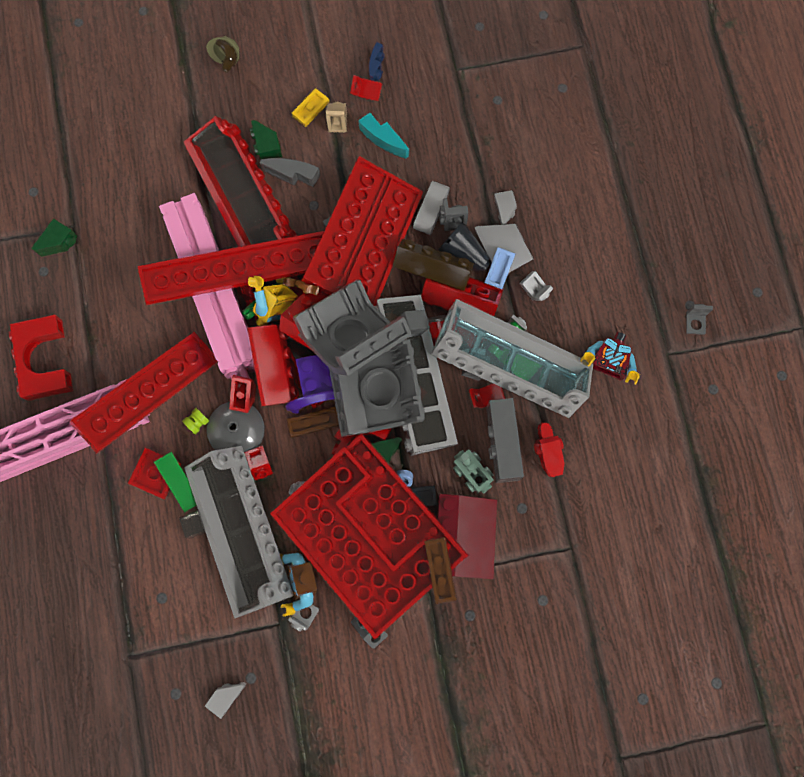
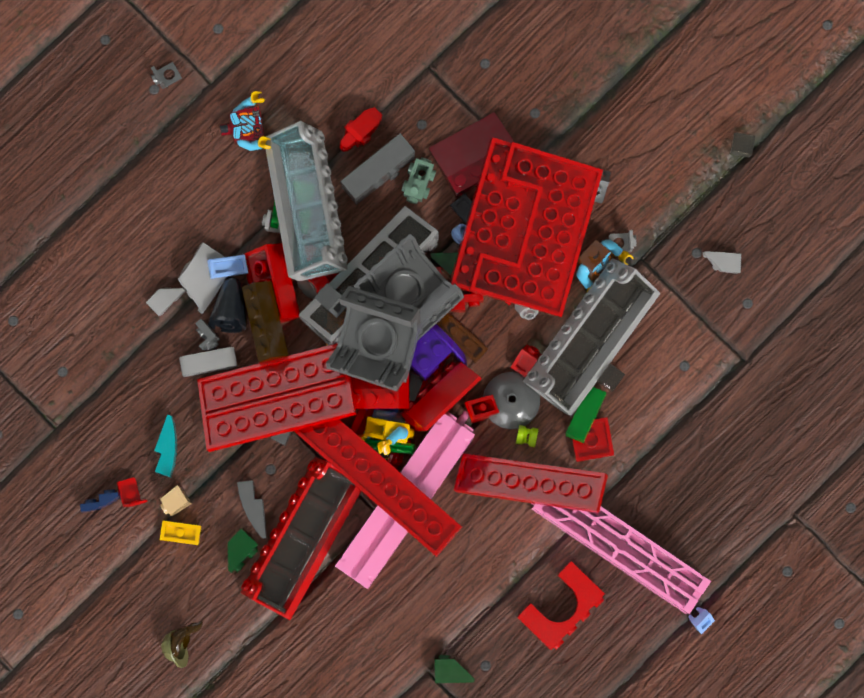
camera: 125 degrees left, 5 degrees up
(288, 281) = (355, 420): dark orange bar -> none
(440, 570) = (518, 150): reddish brown tile -> none
(485, 394) = (348, 209): red bracket -> none
(535, 287) = (224, 226): light grey bracket -> none

